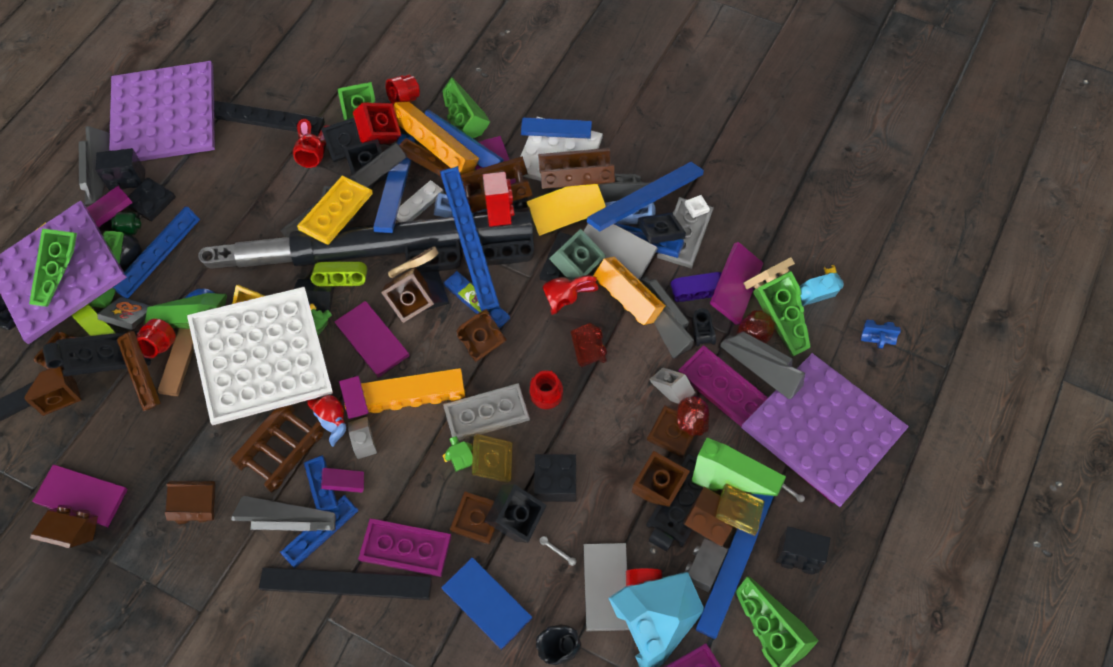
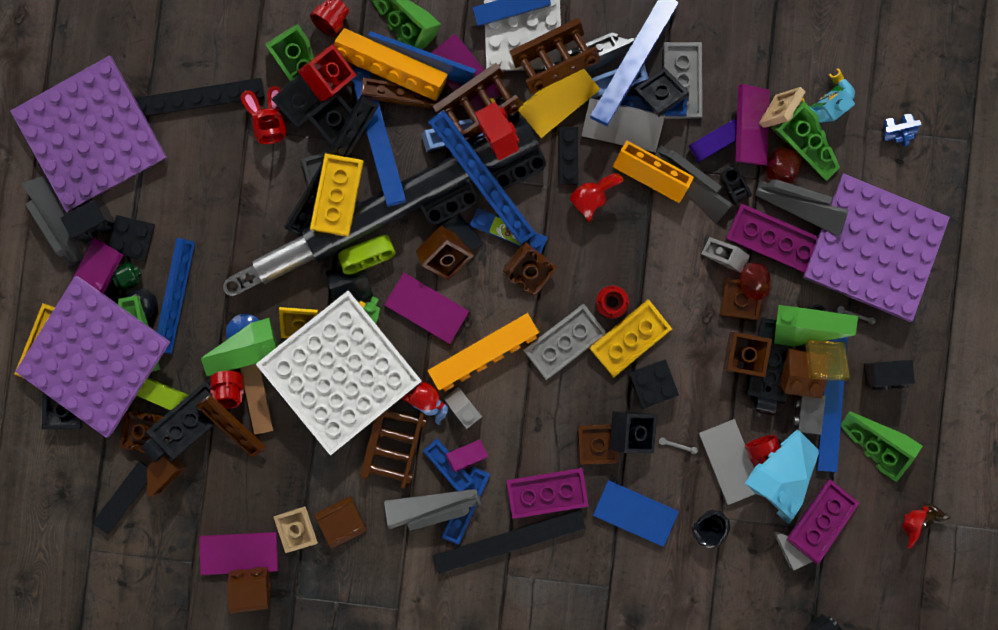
camera: 15 degrees left, 25 degrees up
(52, 260) = (95, 354): bright green wedge -> none
(124, 313) = (182, 371): dark grey tile -> none
(144, 492) = (295, 529): none -> tan slope
(353, 397) = (443, 378): magenta tile -> none
(414, 262) = (446, 216): tan piece -> none
(418, 202) = (406, 141): white plate -> none
(459, 454) = (560, 394): bright green piece -> none
(492, 458) = (590, 387): clear yellow tile -> none
(550, 429) = (630, 338): none -> yellow tile
(577, 256) = (591, 154): sand green brick -> none
(588, 344) = (634, 241): clear red bracket -> none
(697, 206) = (686, 49): white tile -> none

